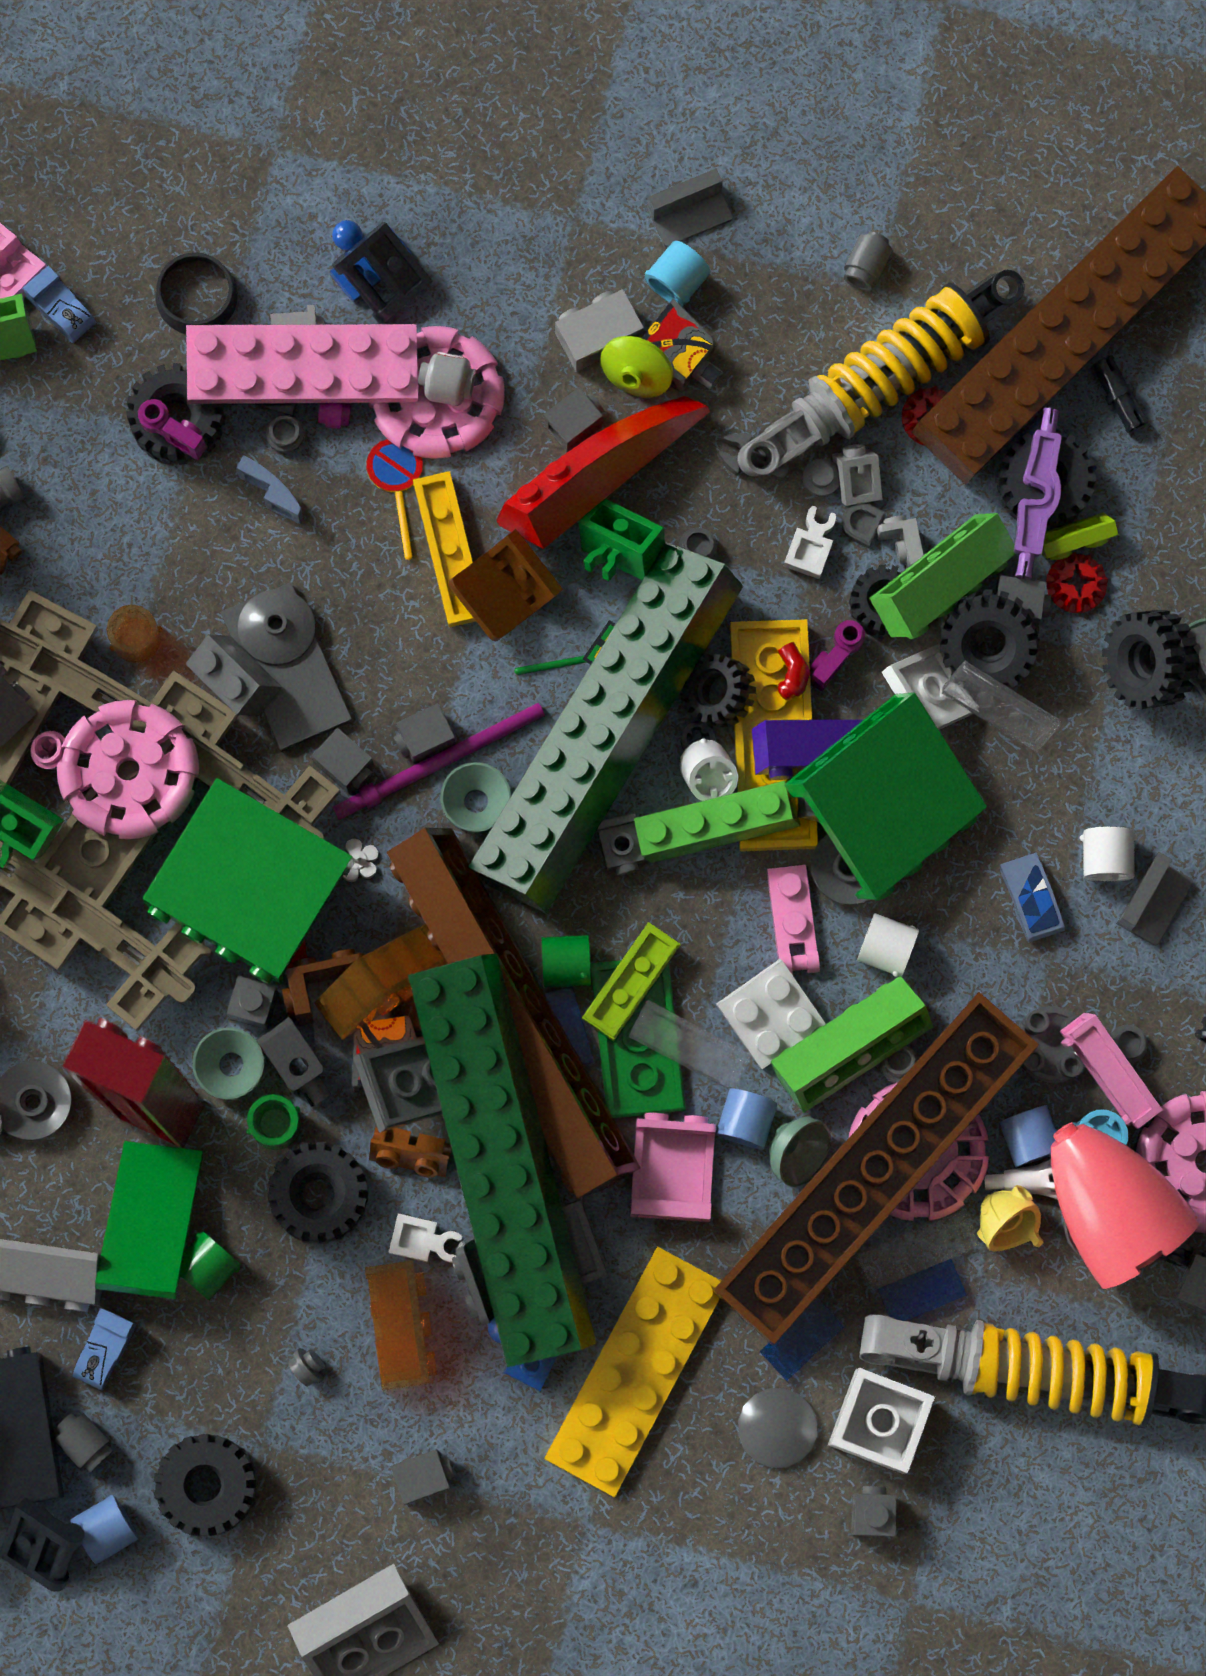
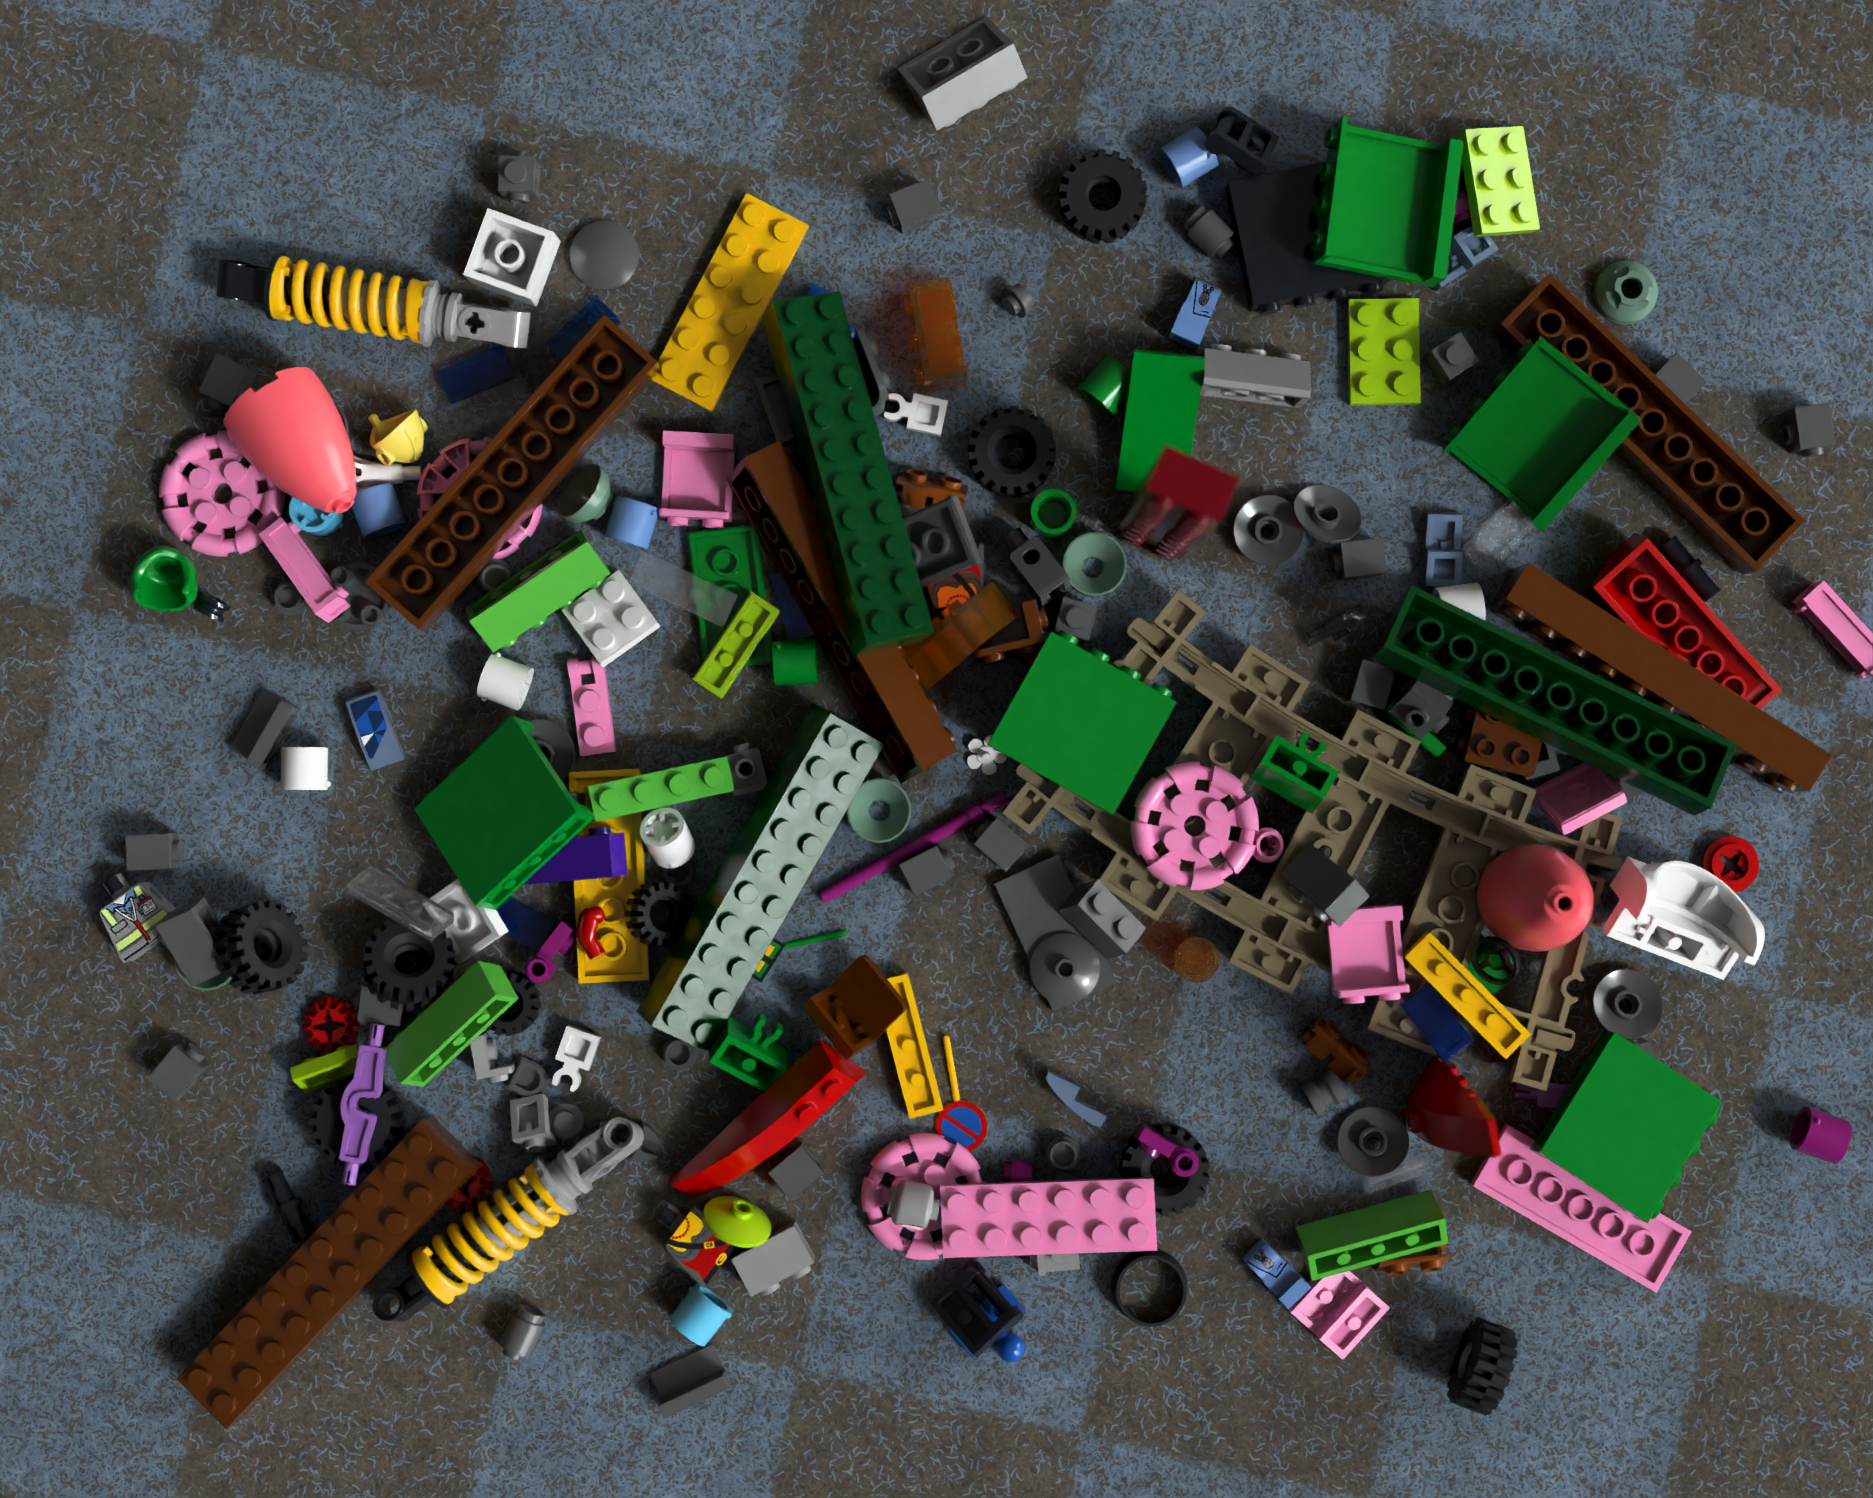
camera: 175 degrees right, 10 degrees up
(863, 684) = (525, 923): none -> clear blue tile

